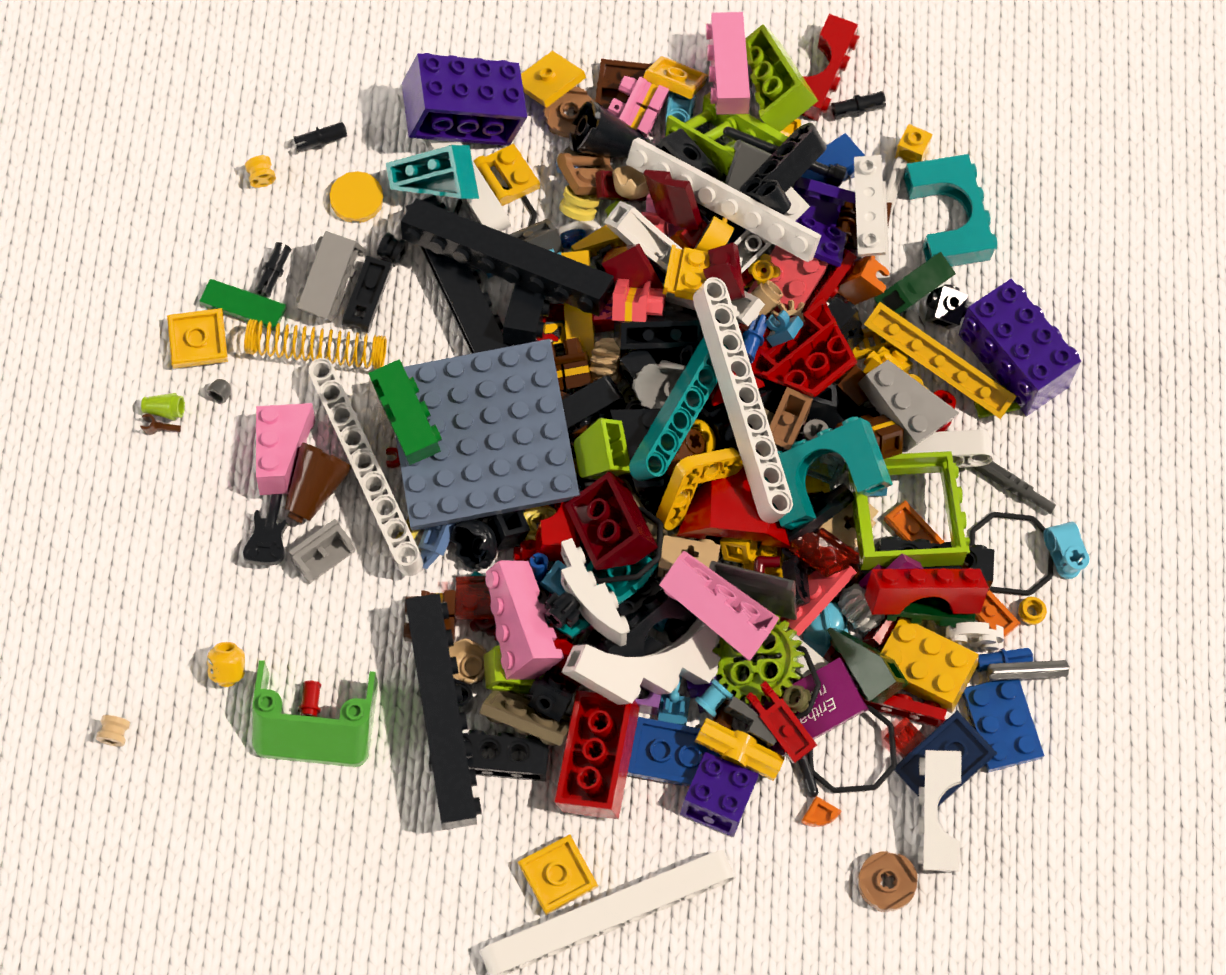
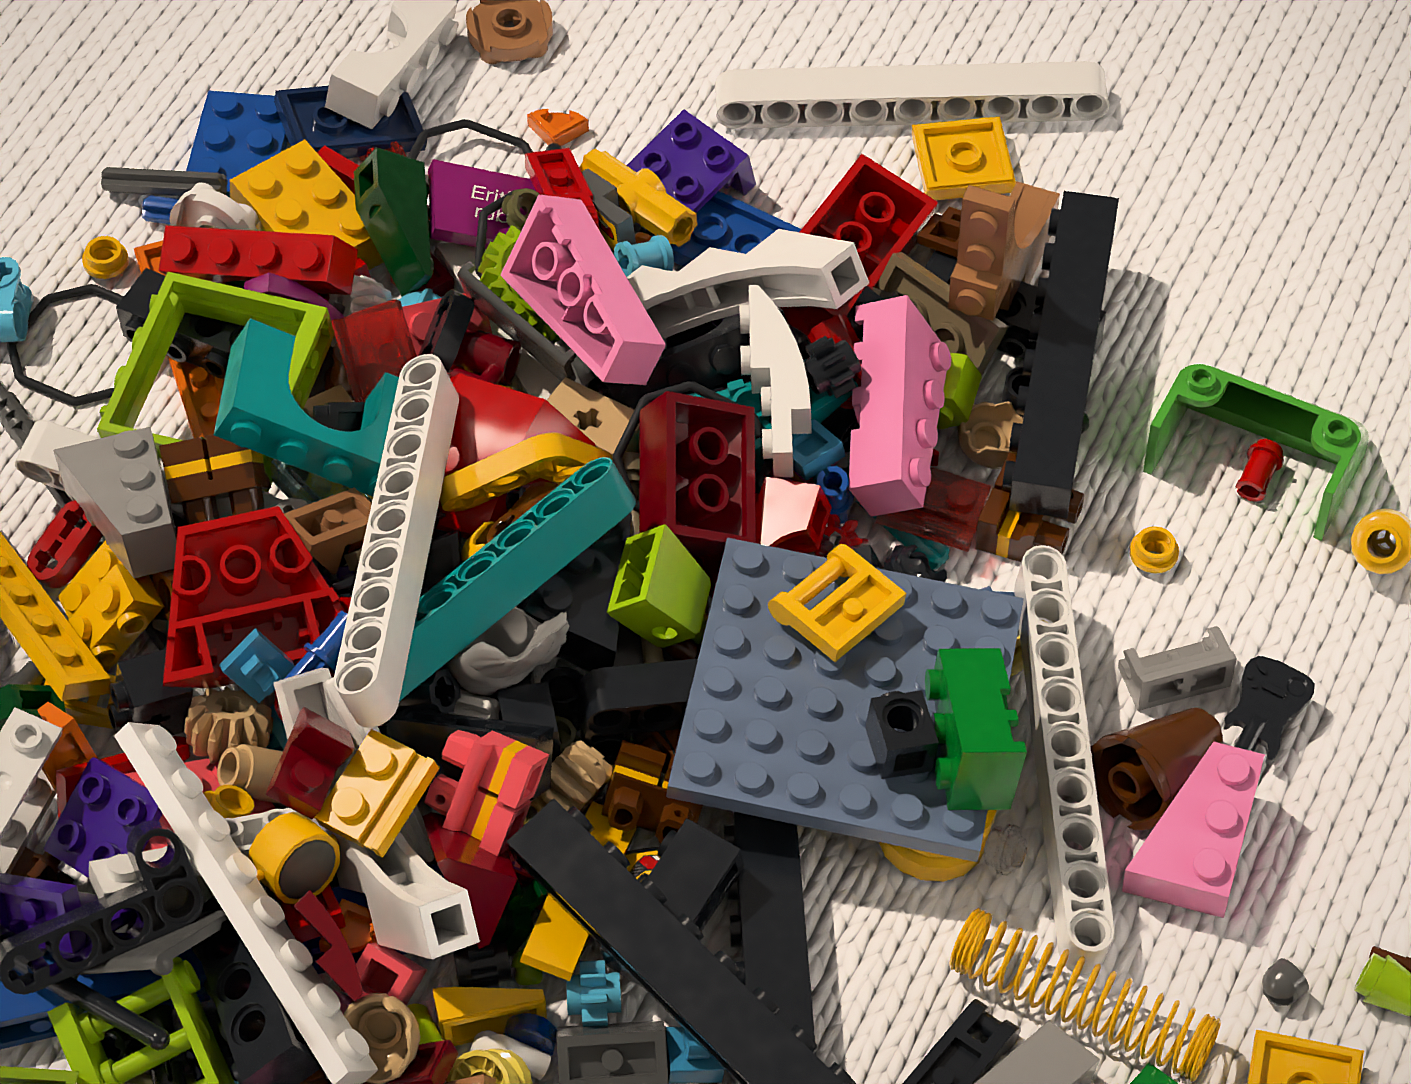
camera: 155 degrees left, 15 degrees down
(351, 617) = (1156, 540): none -> yellow plate
(437, 388) = (897, 751): none -> black brick
(494, 461) = (847, 612): none -> yellow plate
(500, 768) = (998, 246): none -> medium nougat arch
(541, 800) = (942, 232): none -> reddish brown slope

